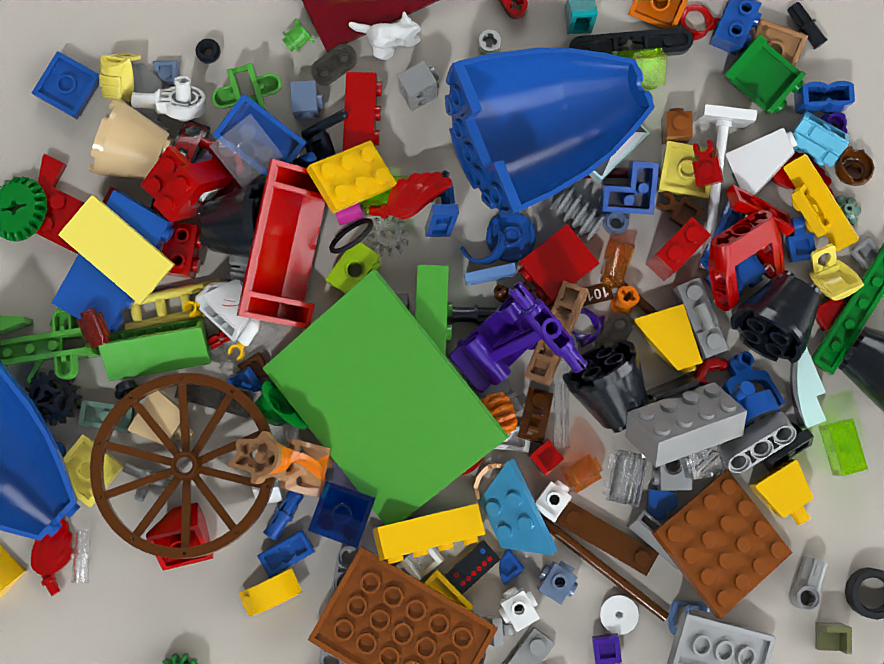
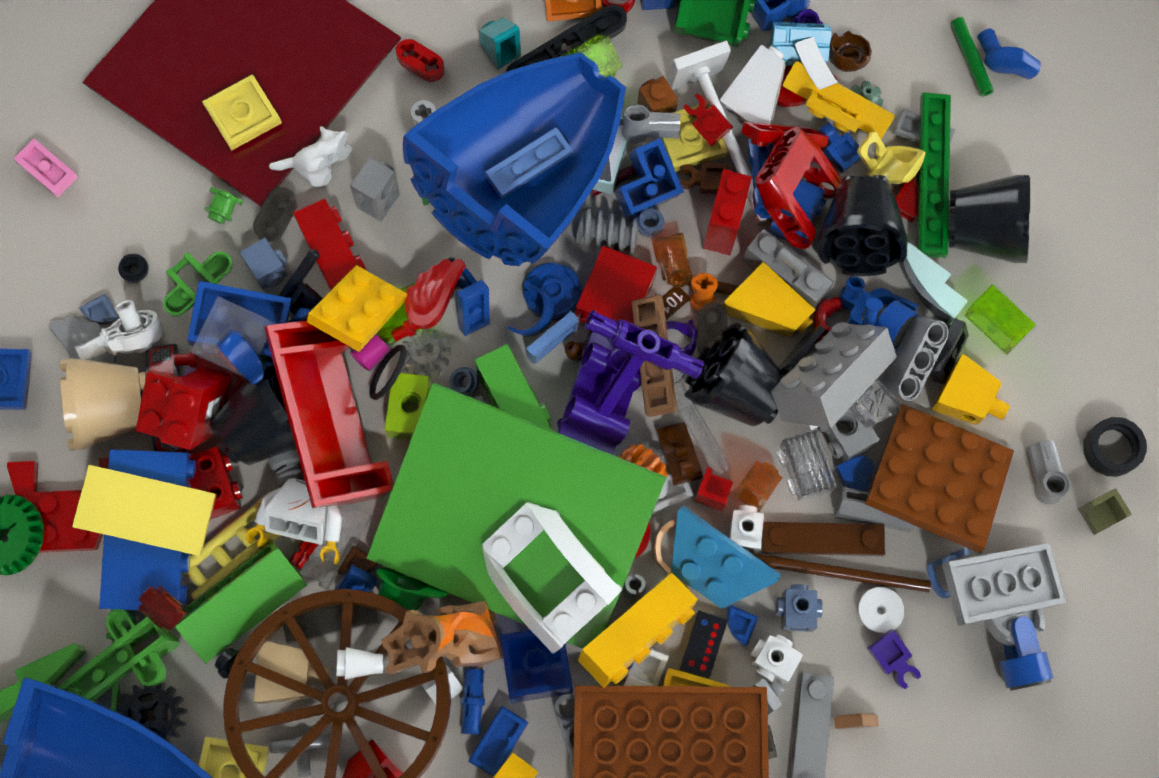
camera: 35 degrees left, 10 degrees down
(93, 414) = (207, 707): sand green plate -> none
(117, 76) = (48, 341): light yellow piece -> none
(210, 446) = (358, 663): none -> white cone
(245, 171) = (242, 356): none -> blue helmet
(389, 495) = (579, 606): none -> white wedge
(400, 269) = (457, 378): none -> sand blue plate
(448, 503) = (630, 593): none -> light grey pin
(471, 314) = (556, 388): black axle -> none
(545, 127) = (528, 163): none -> medium blue plate
(653, 142) = (641, 123): none -> light grey piece
(818, 164) = (814, 63): none -> white sticker

